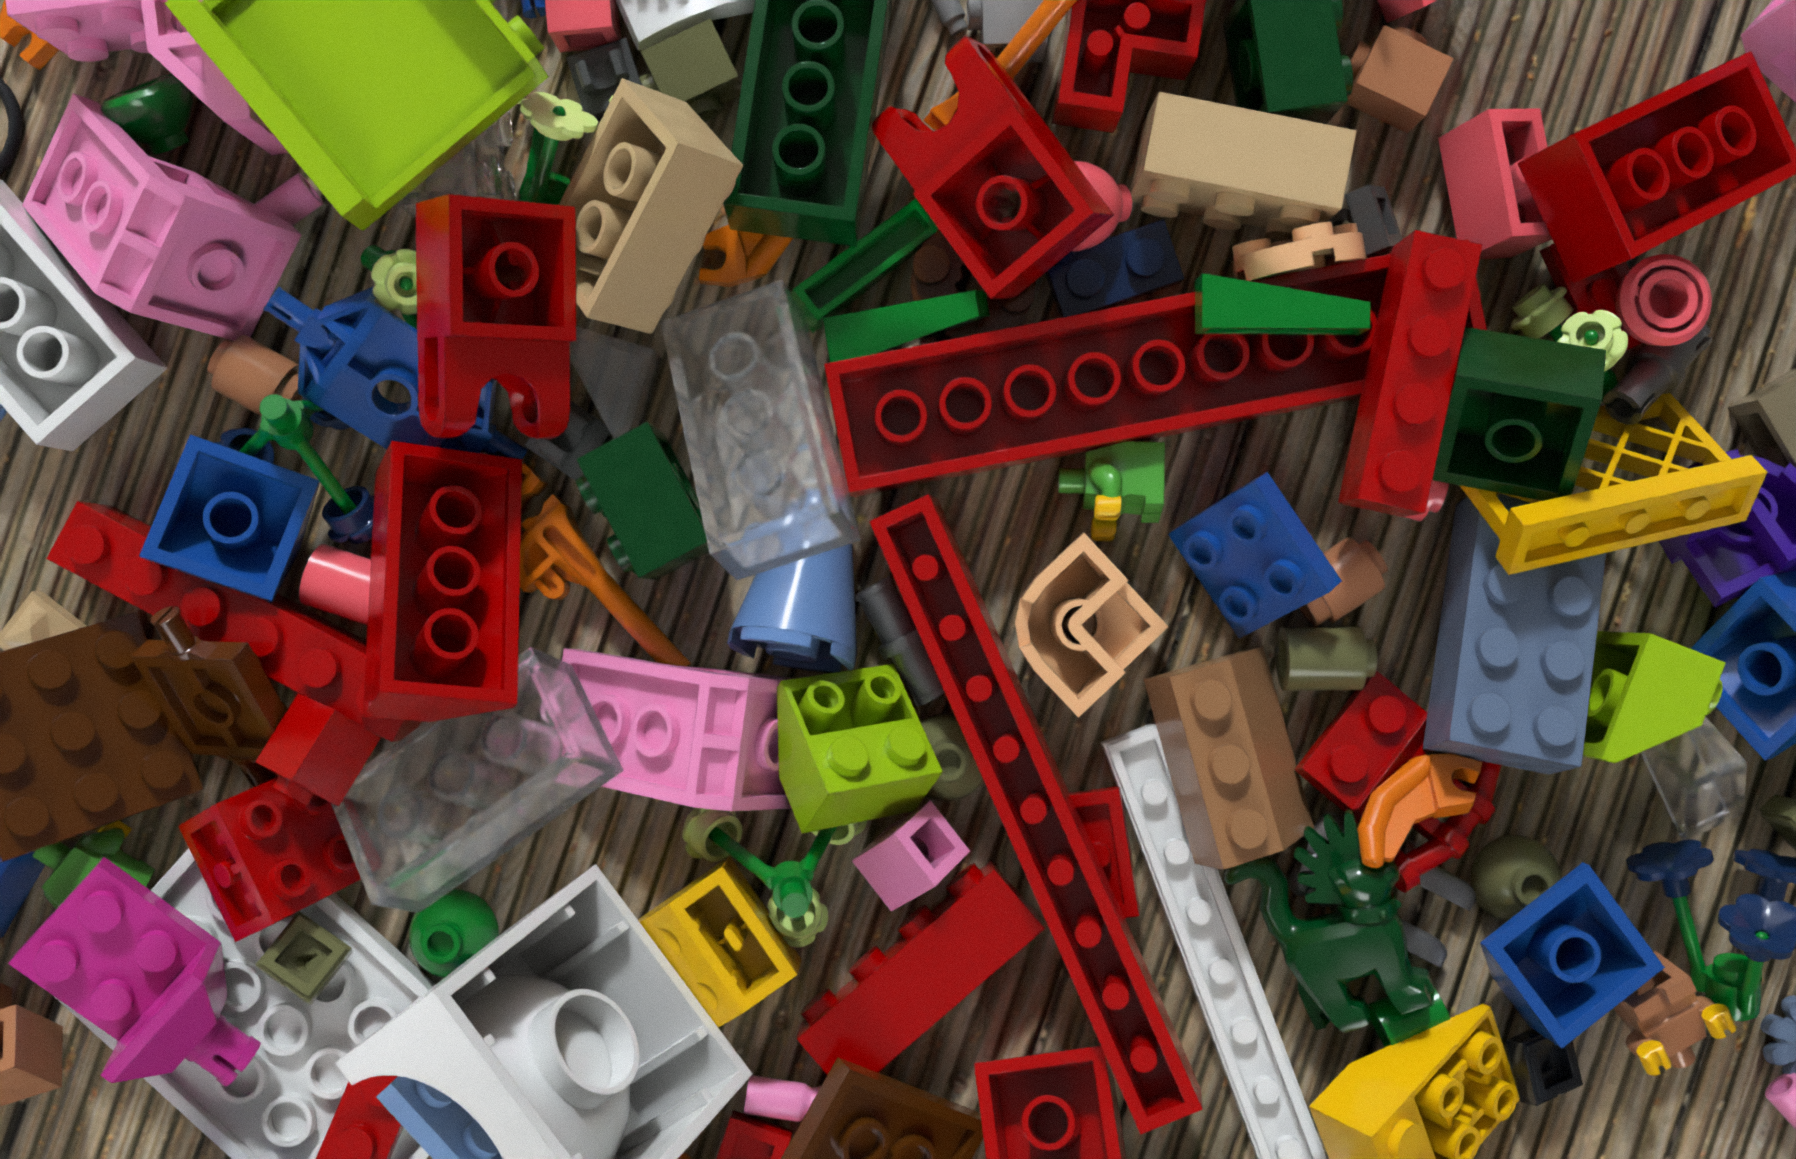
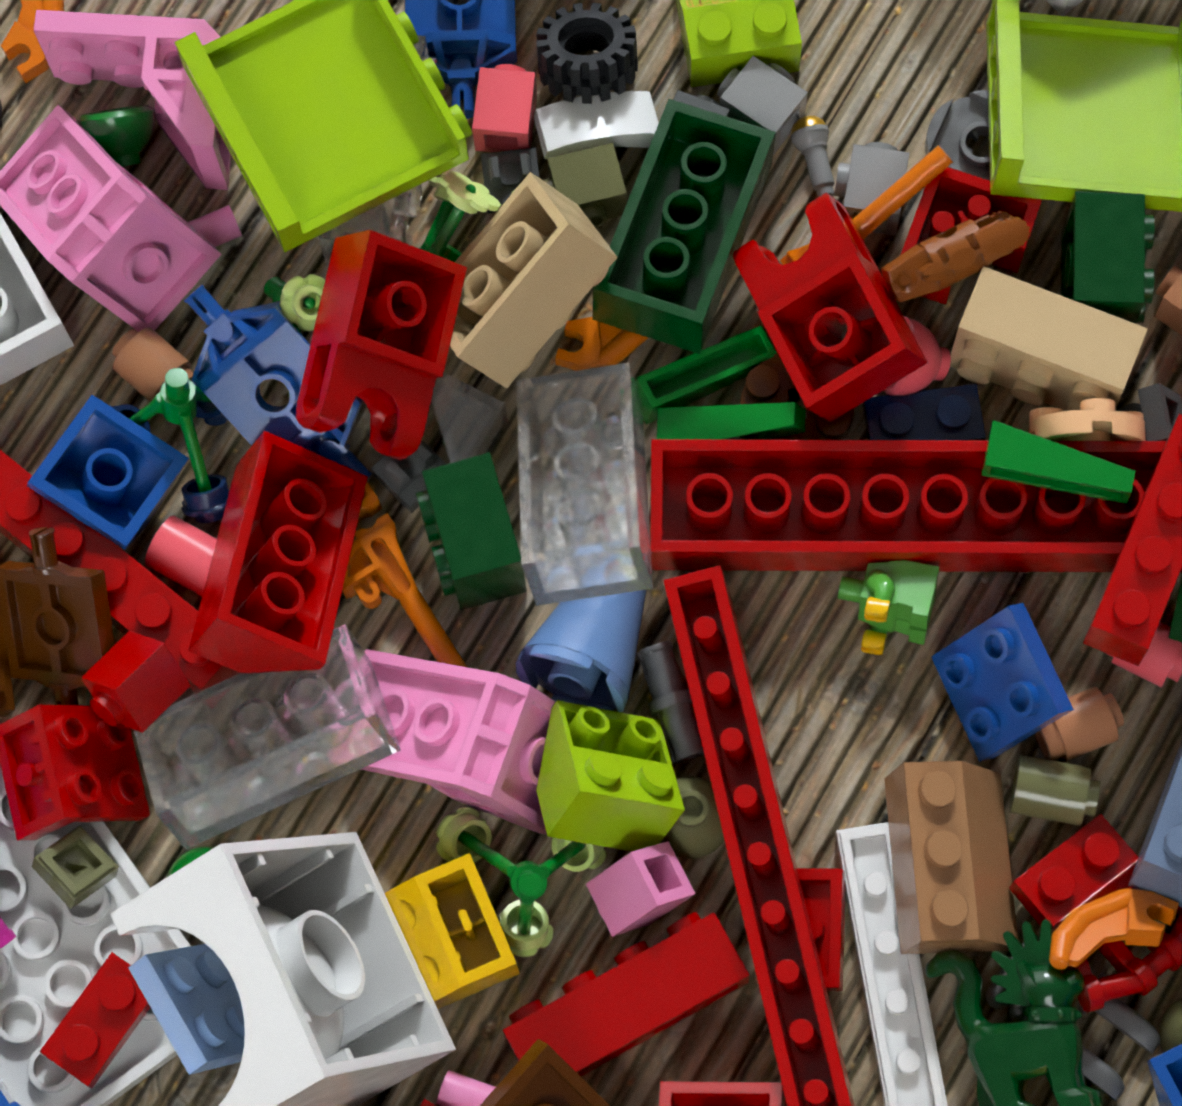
camera: 15 degrees right, 15 degrees down
(1083, 624) = (837, 711): light nougat brick -> none
(1124, 83) = (954, 255): none -> dark orange hinge

